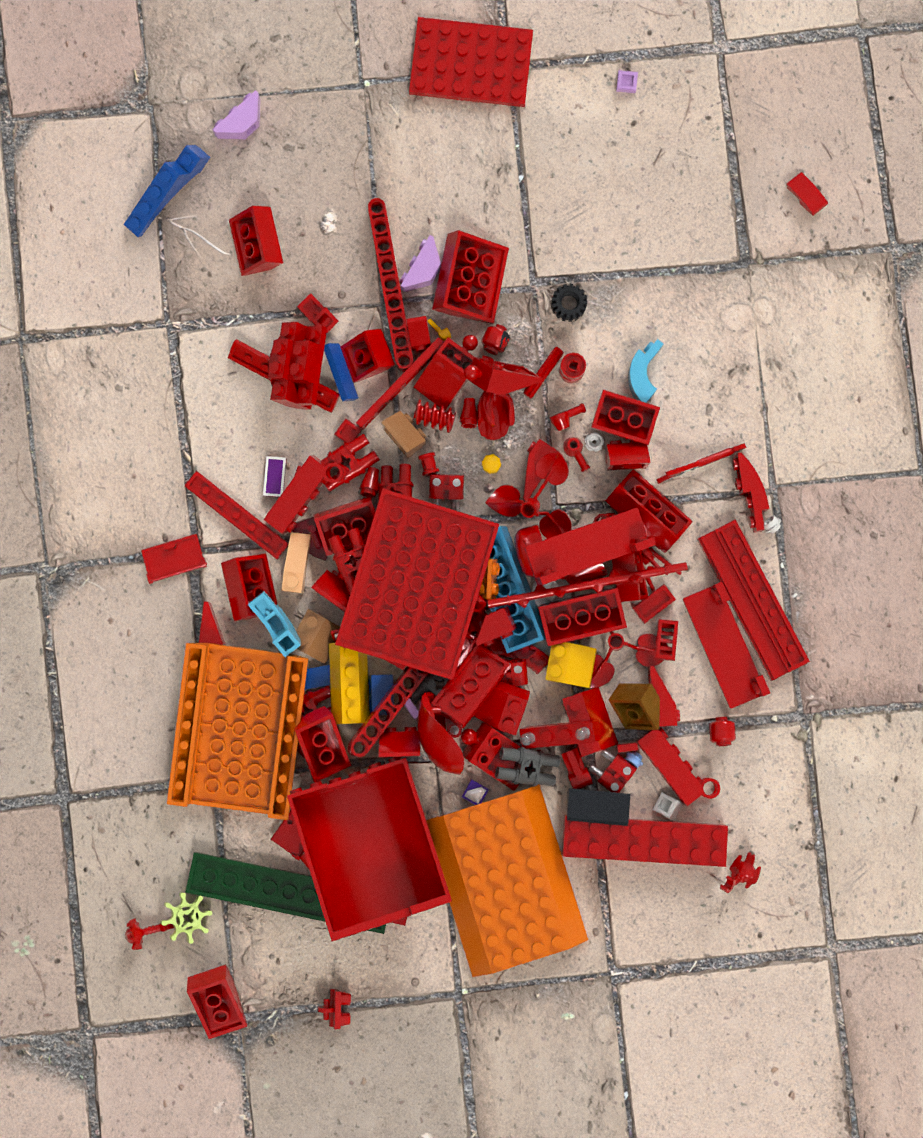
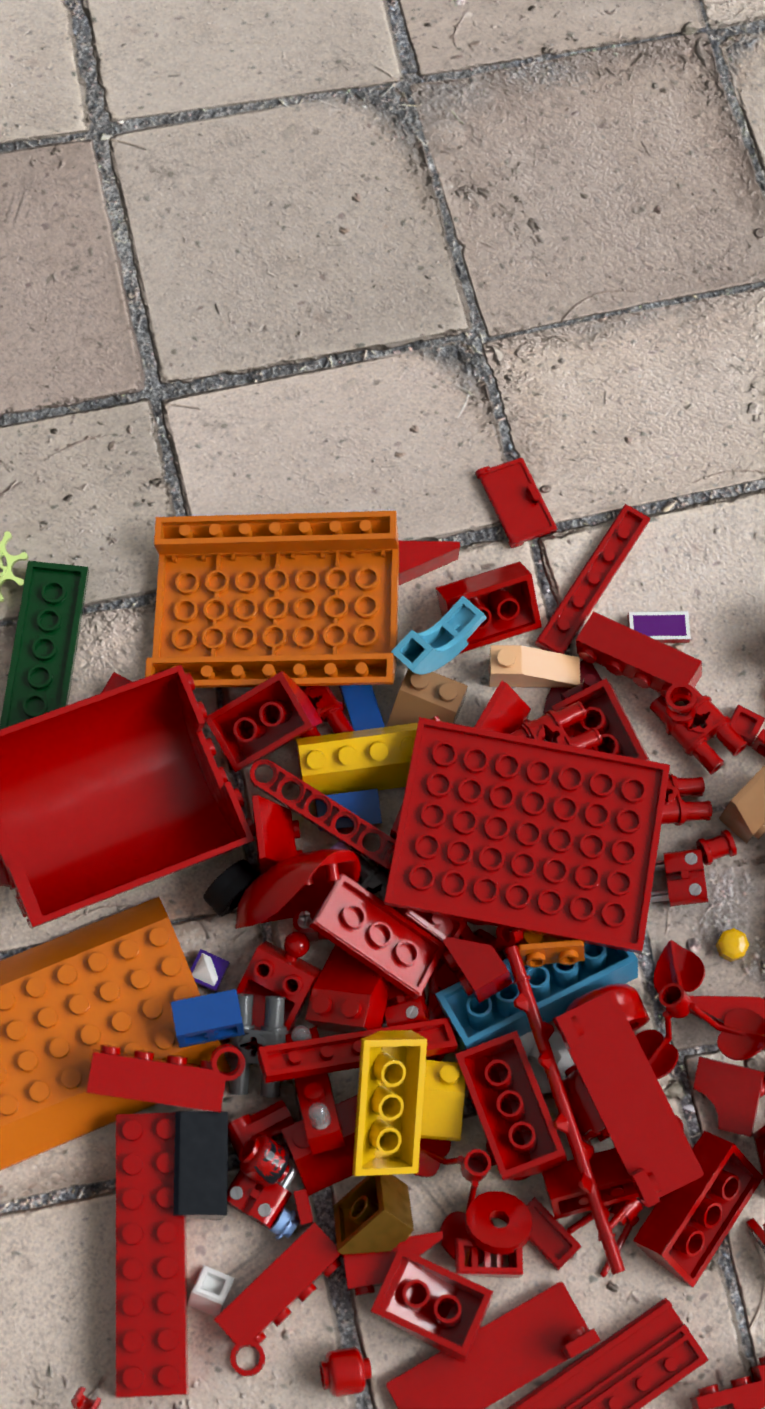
camera: 80 degrees right, 15 degrees down
(369, 485) = (679, 763): red cone -> none
(426, 773) = (229, 887): none -> black tyre
(512, 796) = (207, 1018): none -> blue hinge
(540, 706) = (342, 1051): none -> red plate
(547, 826) = (161, 1080): none -> red hinge
(577, 690) = (389, 1103): none -> yellow slope
(583, 479) = (733, 1092): none -> red tile
(599, 768) = (264, 1160): none -> red head
(637, 628) = (504, 1207): none -> red tile
(691, 677) = (432, 1304): none -> red slope

